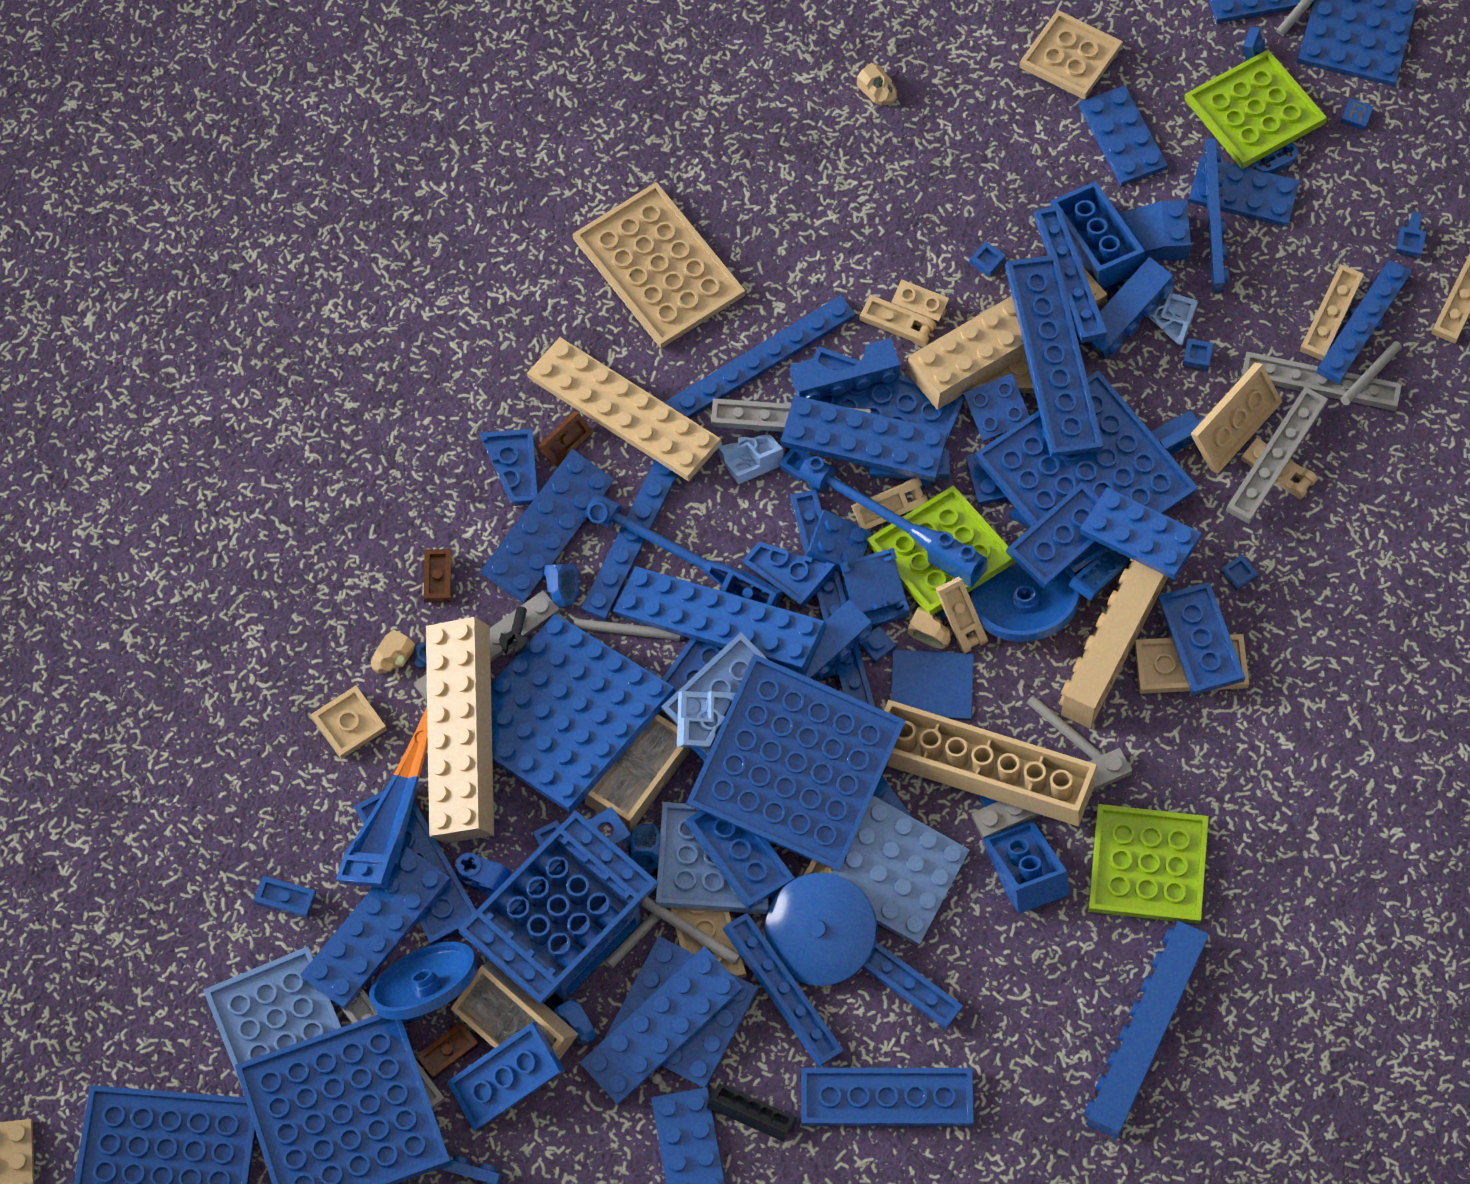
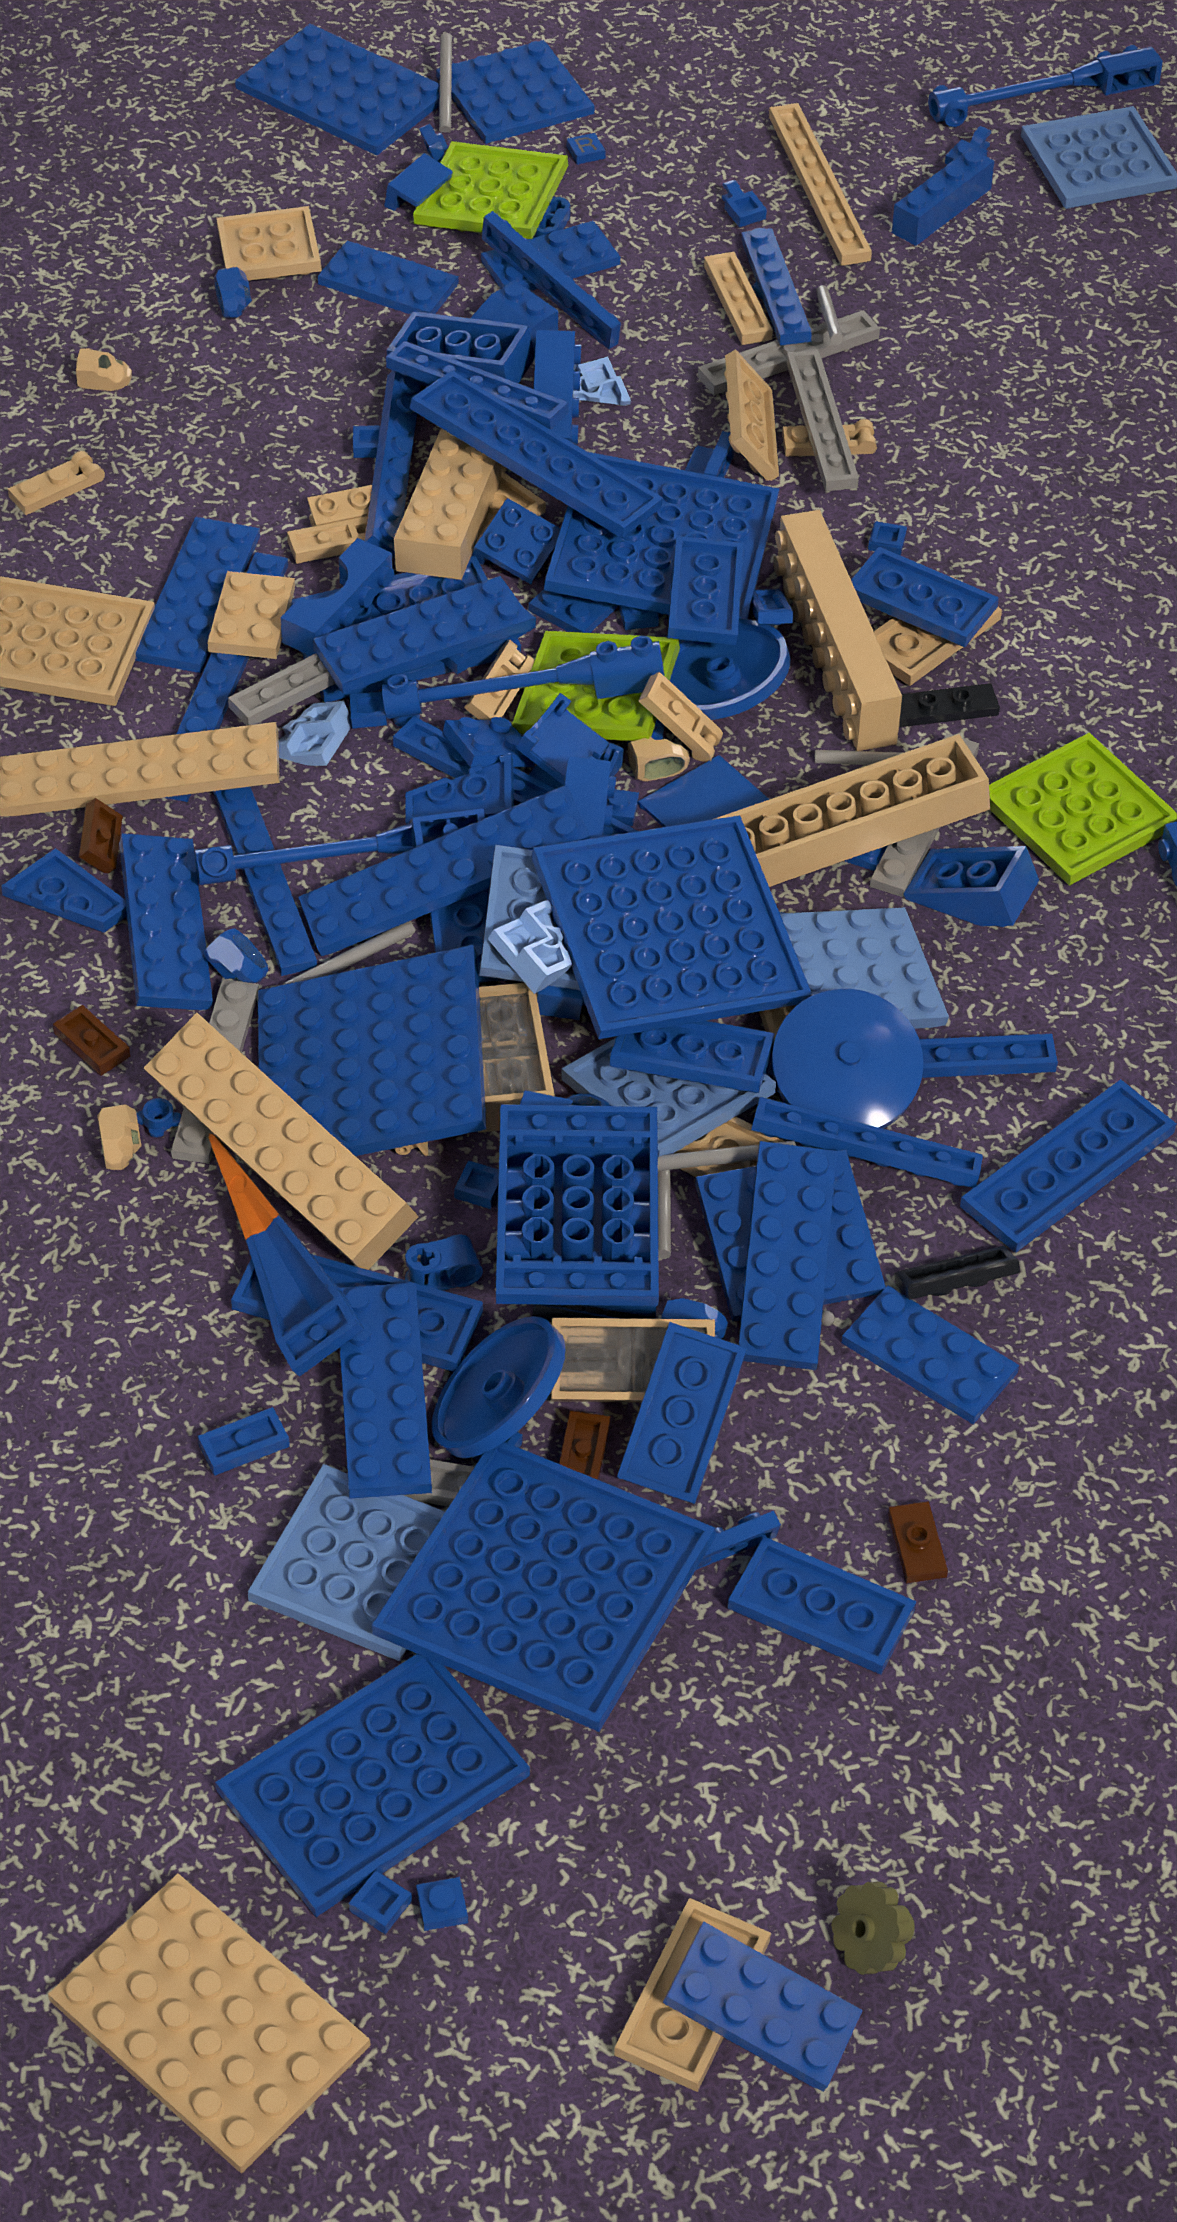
camera: 45 degrees left, 15 degrees down
(348, 722) = (136, 1233): tan plate -> none
(515, 633) = (240, 1027): black bar -> none
(774, 154) = (56, 483): none -> tan plate
(781, 300) = (188, 603): none -> blue plate
(788, 341) = (250, 615): none -> tan plate
(974, 293) = (392, 462): none -> blue plate
(1011, 79) = (232, 291): none -> blue rock
(1140, 533) = (782, 534): blue plate -> none
(1145, 724) = (948, 705): none -> black plate
(1197, 354) = (654, 397): blue plate -> none
(1211, 70) = (416, 182): none -> blue panel

